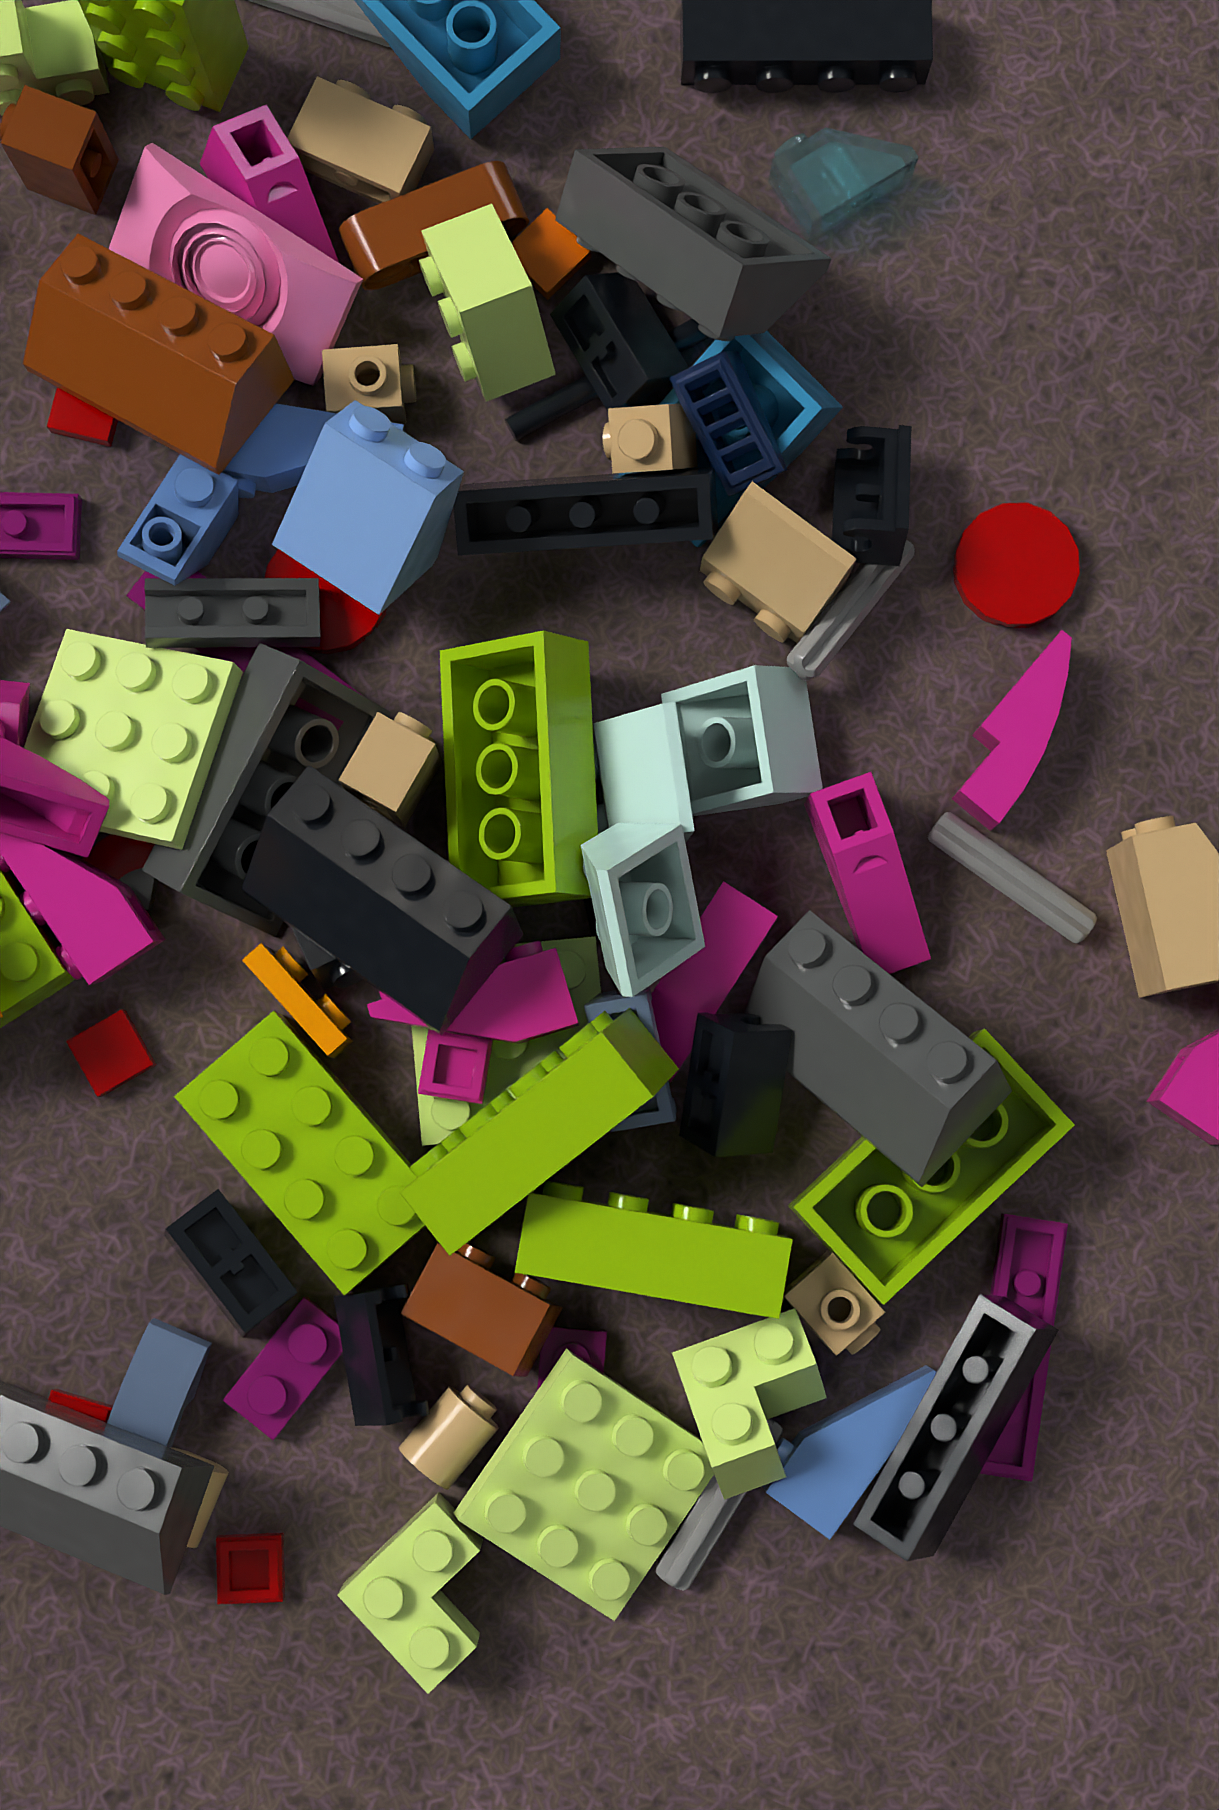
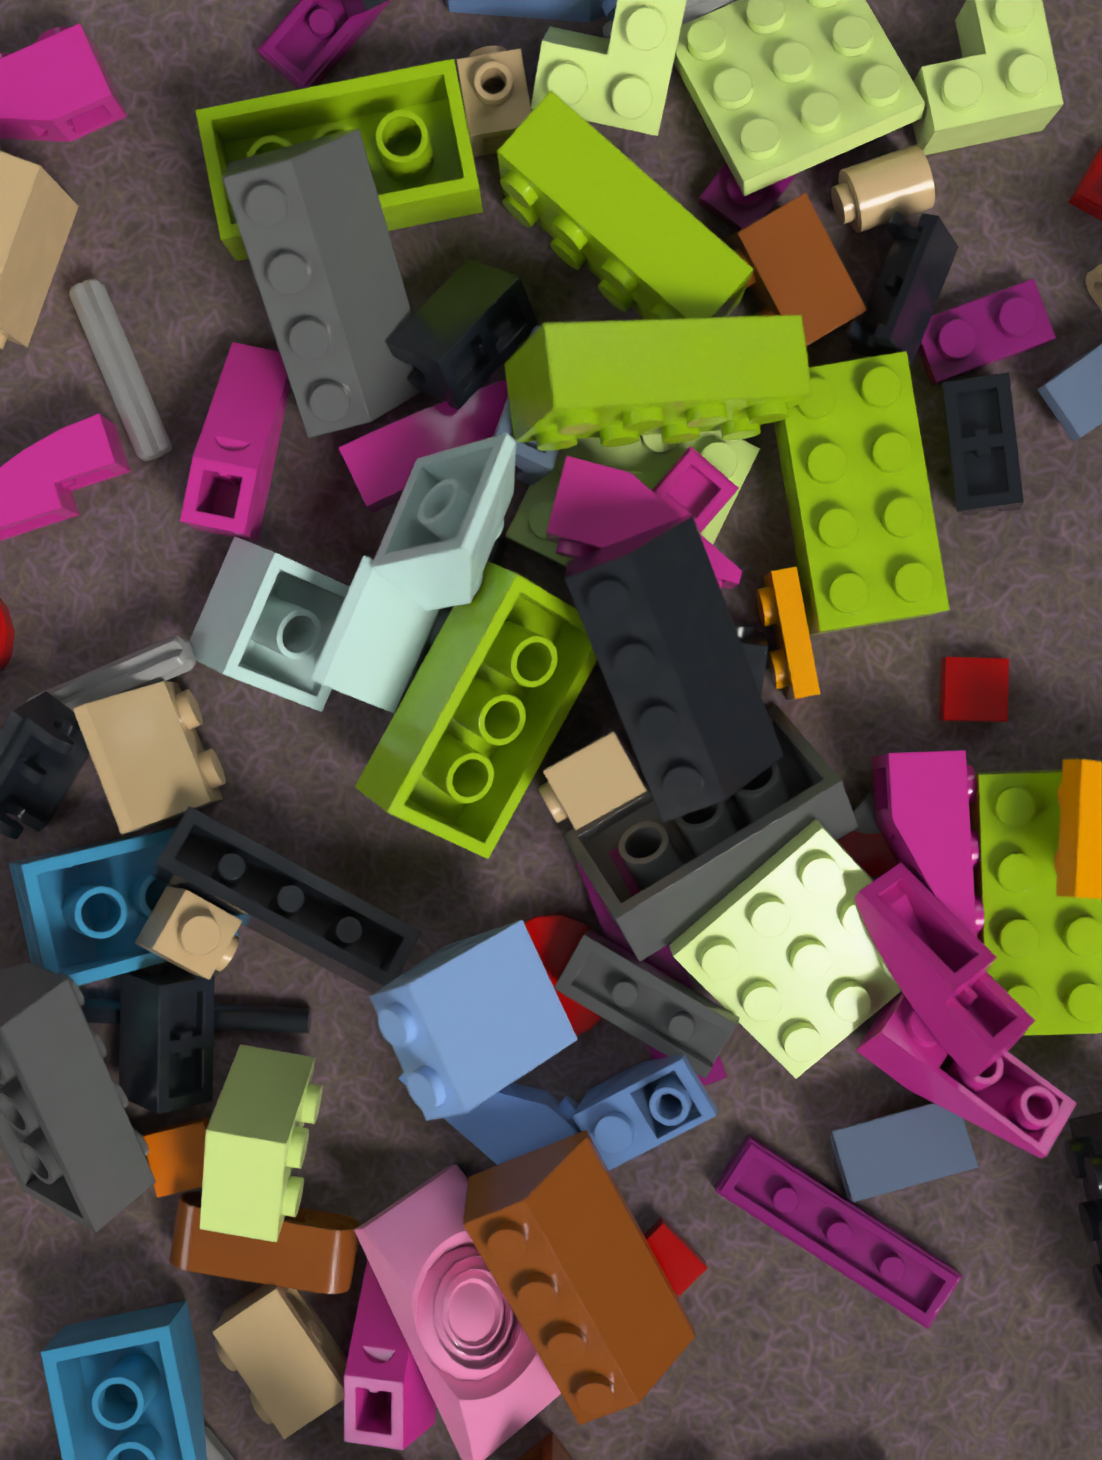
camera: 145 degrees left, 5 degrees up
(371, 377) = (404, 1138): tan brick -> none
(699, 412) = (132, 931): dark blue slope -> none

